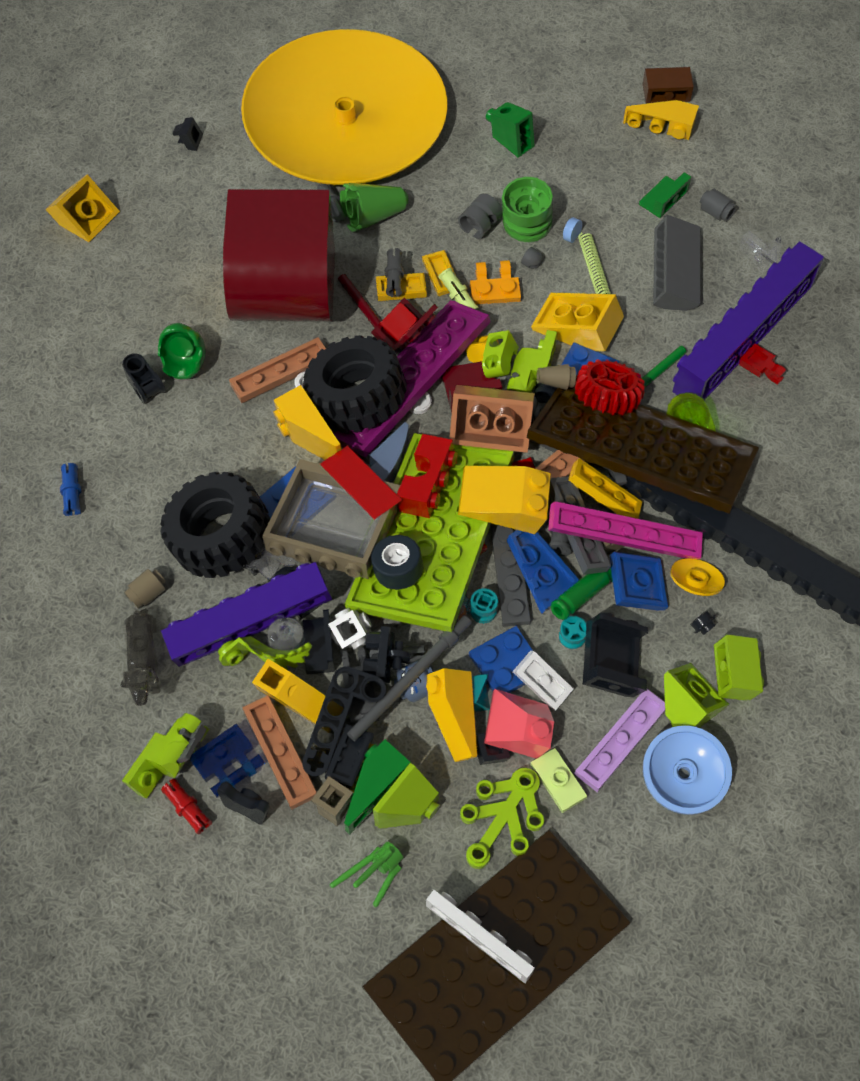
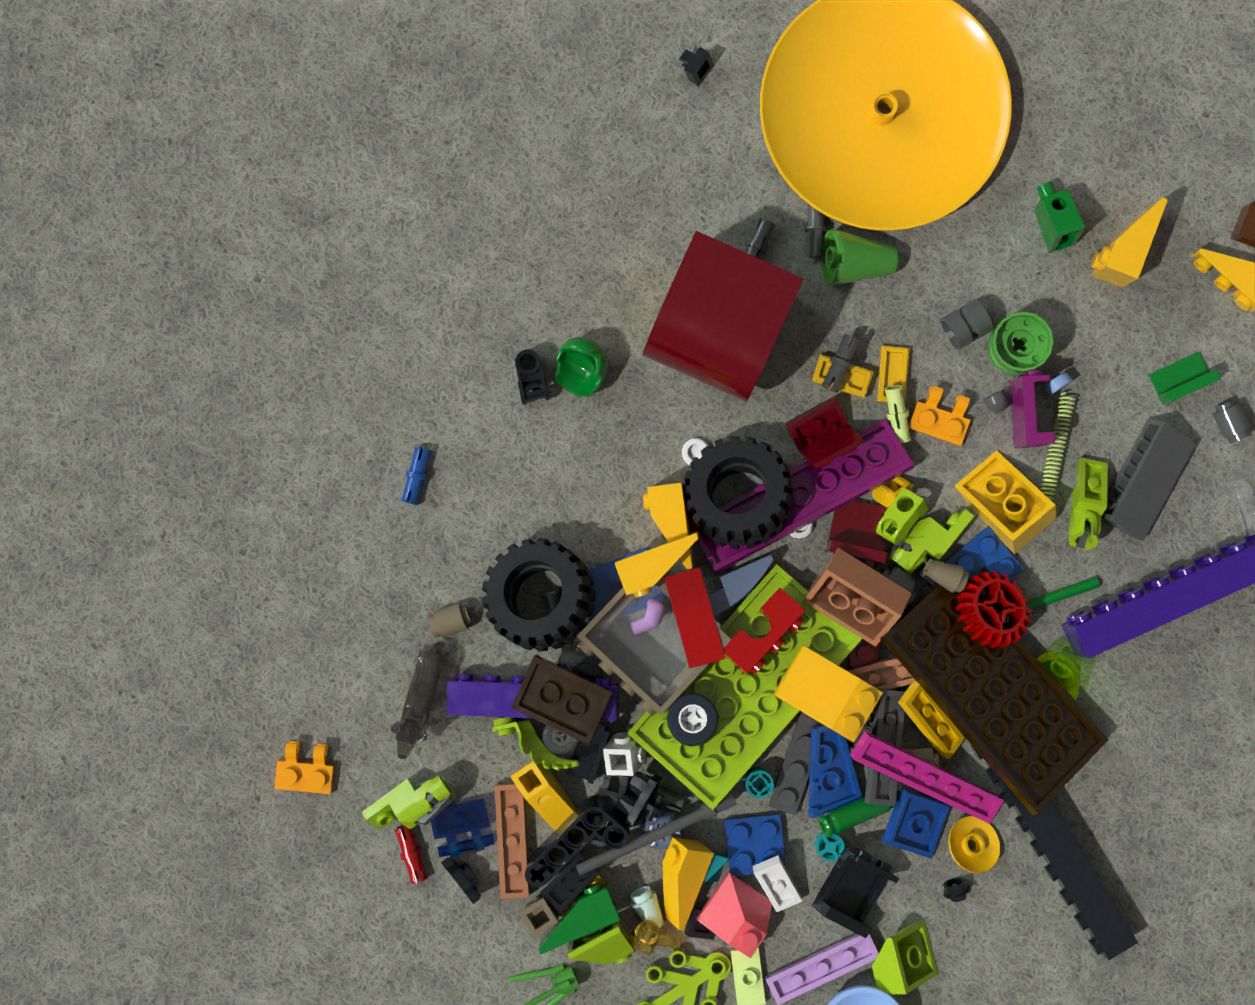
camera: 25 degrees right, 25 degrees up
(54, 779) = (305, 776): none -> light orange plate
(83, 209) = (544, 125): yellow slope -> none
(271, 589) = (562, 699): none -> dark brown plate
(275, 371) = (674, 426): nougat plate -> none
(301, 451) = (648, 567): none -> yellow slope
(323, 502) = (652, 618): none -> lavender arm
(359, 300) = (792, 374): dark red bar -> none
(398, 321) = (817, 429): red slope -> none
(434, 756) = (647, 905): none -> cone
(445, 776) = (646, 937): none -> clear yellow bar
(565, 261) = (1024, 411): none -> magenta panel
(573, 124) = (1125, 255): none -> yellow slope
(642, 294) = (1088, 503): none -> lime plate
(738, 667) = (962, 951): lime brick -> none
(760, 361) = (1168, 637): red plate -> none

